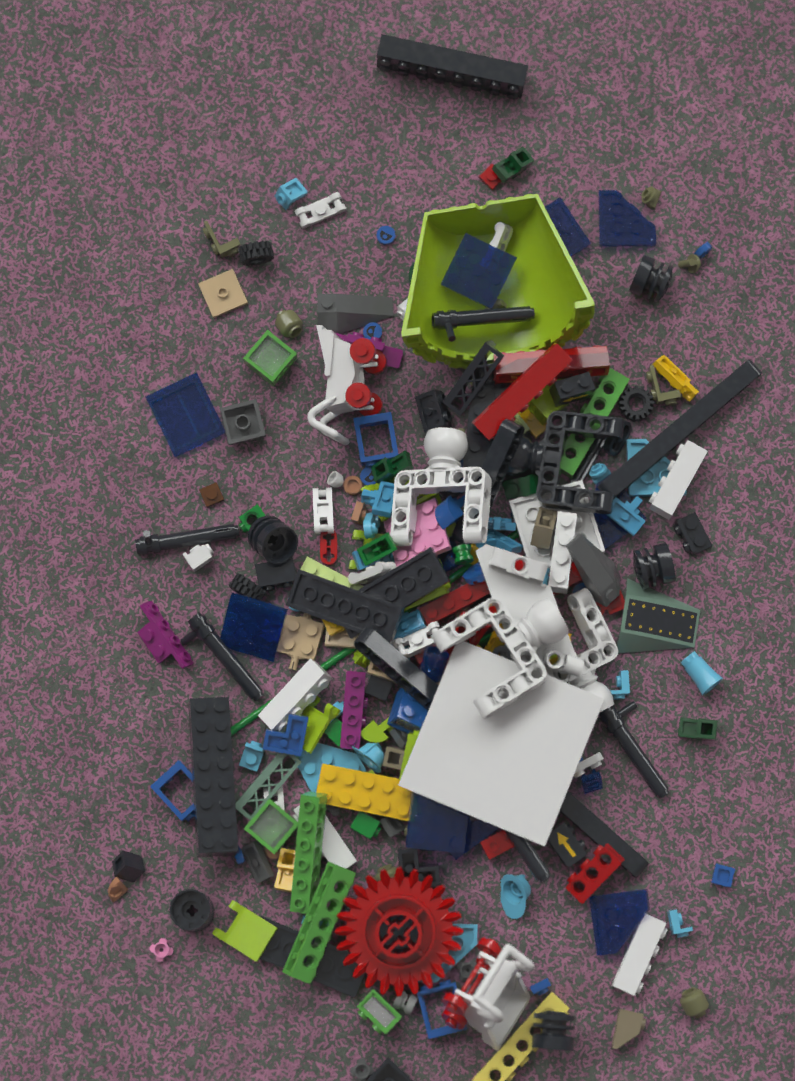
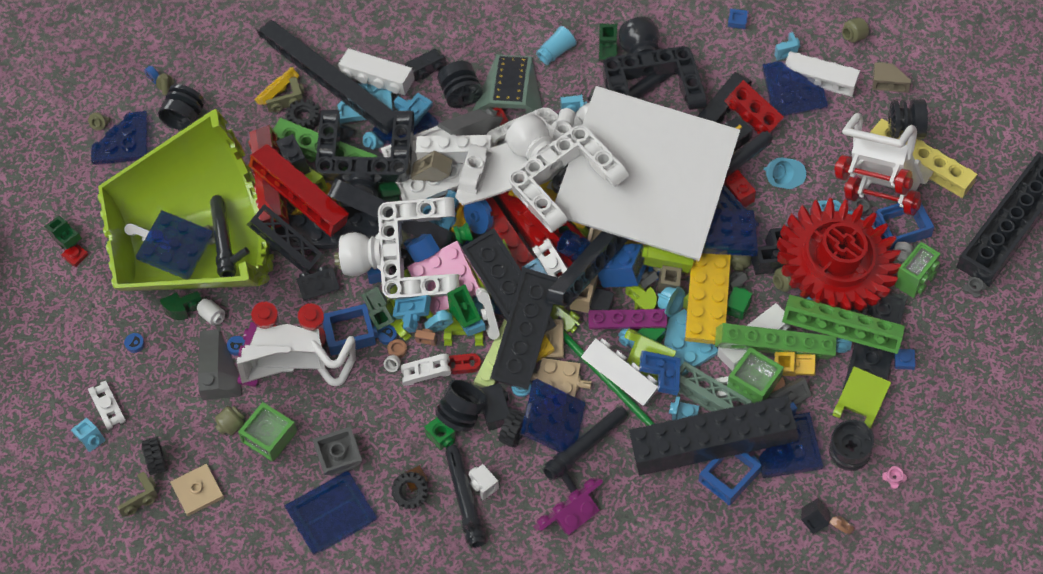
camera: 90 degrees left, 20 degrees down
(199, 868) = (796, 456): none -> clear blue plate
(203, 491) = (400, 481): none -> black tyre
(287, 984) = (905, 359): none -> blue plate
(691, 762) = (640, 41): none -> black piece

